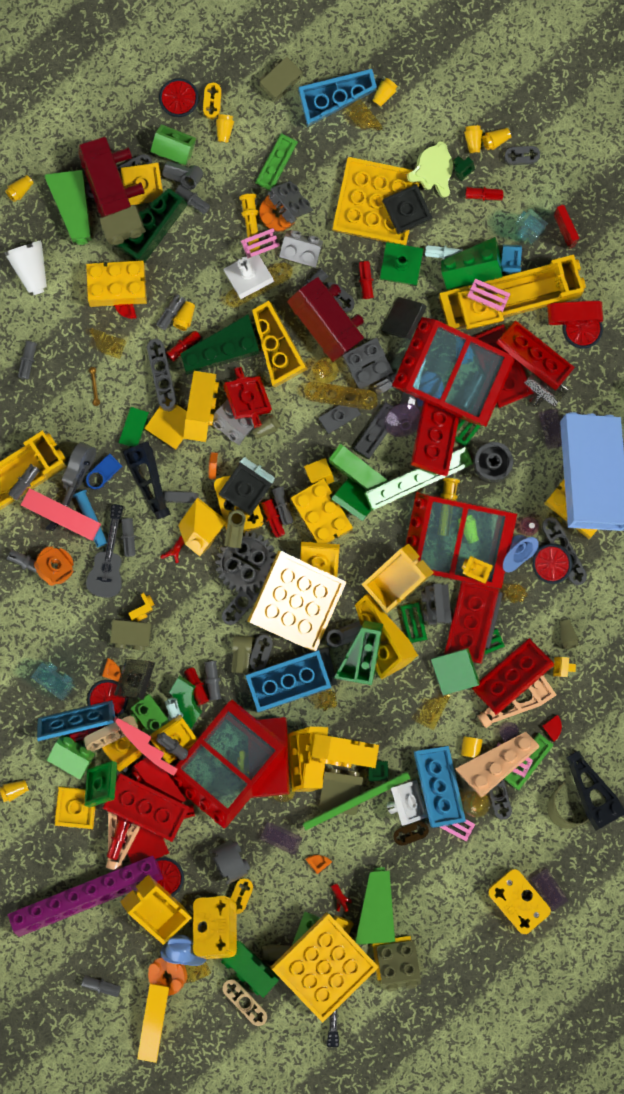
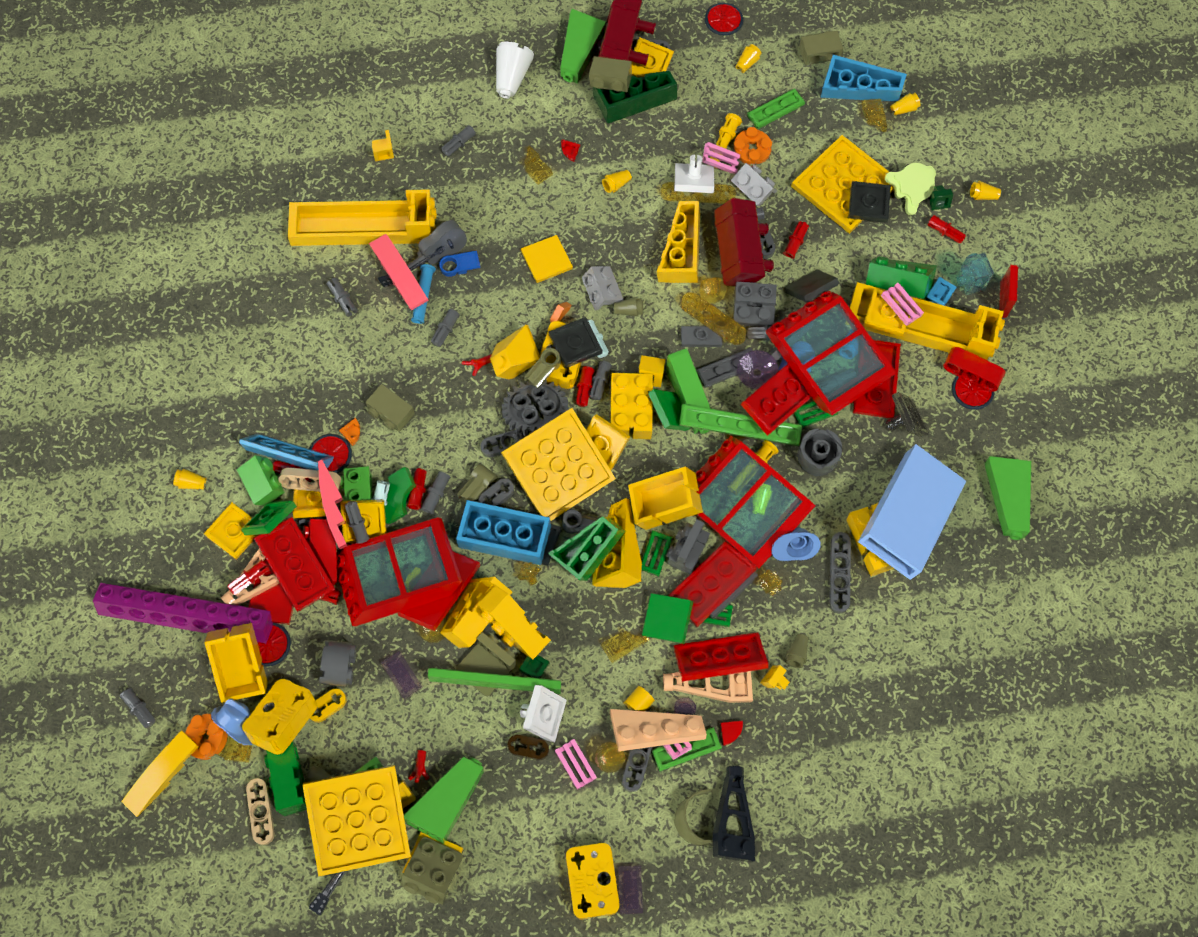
camera: 30 degrees right, 15 degrees down
(19, 188) = (544, 11): yellow cone -> none
(24, 482) = (385, 224): dark grey axle -> none
(50, 574) = (356, 318): orange plate -> none
(53, 681) = (292, 407): clear light blue brick -> none
(96, 402) = (494, 206): pearl gold hinge -> none
(105, 576) = (401, 348): dark grey piece -> none
(116, 283) = (575, 122): yellow piece -> none
(133, 427) = (512, 243): green tile -> none
(135, 679) = (365, 448): clear smoke tile -> none
(141, 613) = (413, 394): yellow bracket -> none
(144, 454) = (497, 265): black plate -> none
(160, 375) = (567, 215): dark grey beam -> none
(170, 312) = (600, 173): dark grey axle -> none
(173, 144) = (695, 45): bright green brick -> none
(180, 497) = (511, 319): dark grey beam -> none
(183, 345) = (600, 203): red axle -> none
(186, 176) = (689, 73): dark grey piece -> none
(192, 199) = (684, 97): dark grey axle -> none
(200, 405) = (580, 255): yellow wedge -> none
(207, 100) = (748, 32): yellow beam -> none
(223, 347) = (632, 221): dark green wedge -> none
(247, 397) = (628, 272): red plate -> none
(291, 200) = (767, 140): dark grey hinge -> none
(318, 862) = (421, 720): orange tile -> none
(401, 264) = (836, 245): green tile -> none
(439, 787) = (583, 718): dark azure slope -> none
(440, 252) = (873, 251): light aqua axle -> none
(473, 138) = (964, 180): yellow cone -> none
(477, 569) = (745, 533): yellow bracket -> none
(523, 160) = (1000, 218): dark grey beam -> none
(529, 526) = (820, 529): clear pink tile -> none
(535, 355) = (915, 383): red tile -> none
(551, 428) = (892, 456): tile -> none
(552, 563) = (822, 576): red wheel -> none

